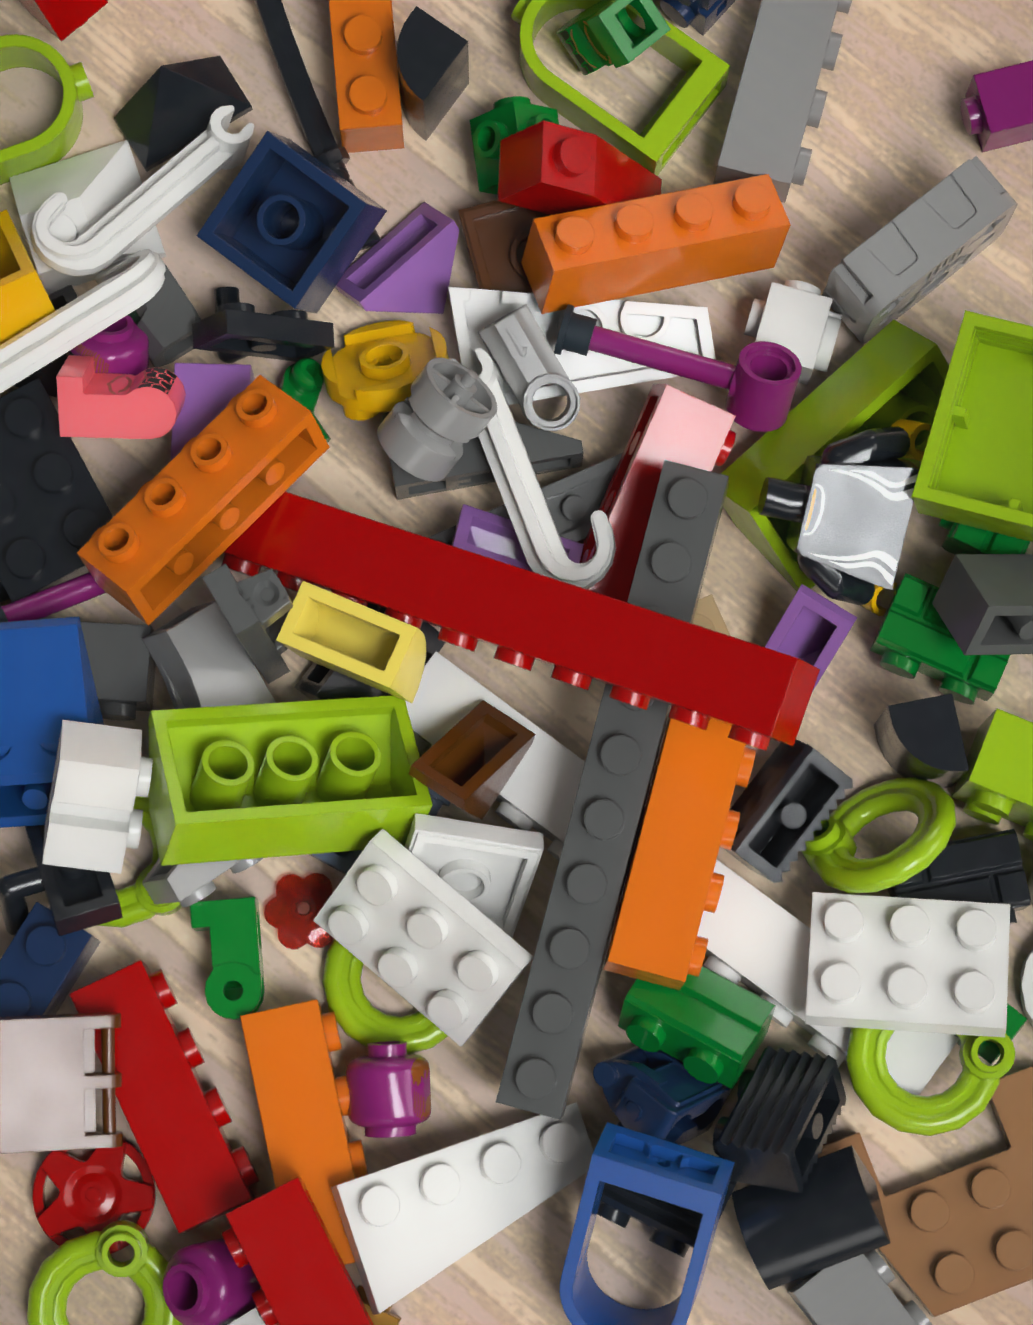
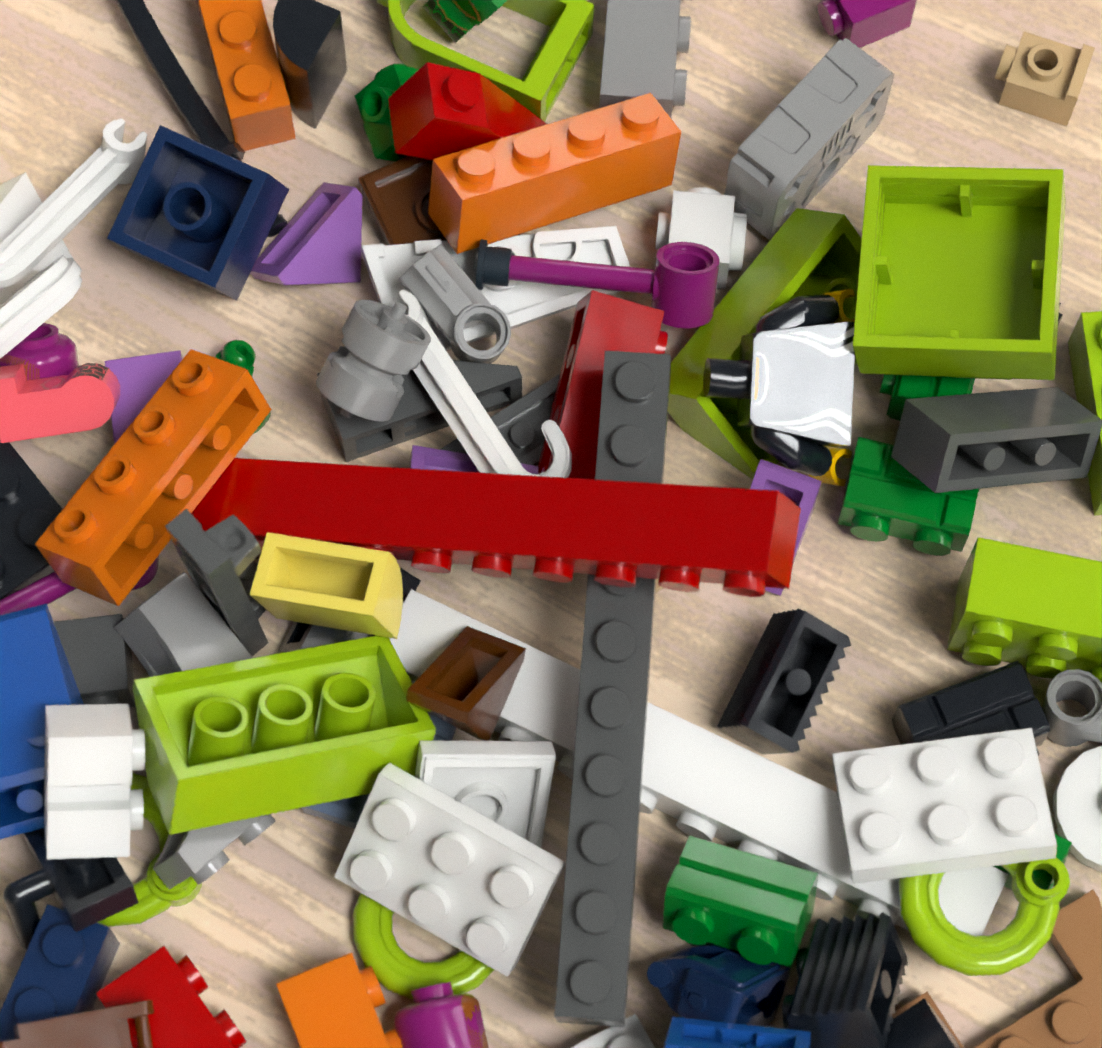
camera: 10 degrees left, 10 degrees down
(167, 322) = (93, 325): dark grey rock -> none
(178, 107) = (67, 132): black slope -> none
(236, 951) = (261, 927): green leg -> none
(240, 332) = (173, 320): black plate -> none
(282, 911) = (318, 890): clear red plant -> none
(378, 366) = (302, 335): yellow plate -> none
(677, 853) = (690, 733): orange brick -> none
(834, 849) = (844, 718): lime piece -> none
(923, 740) = (910, 591): black brick -> none

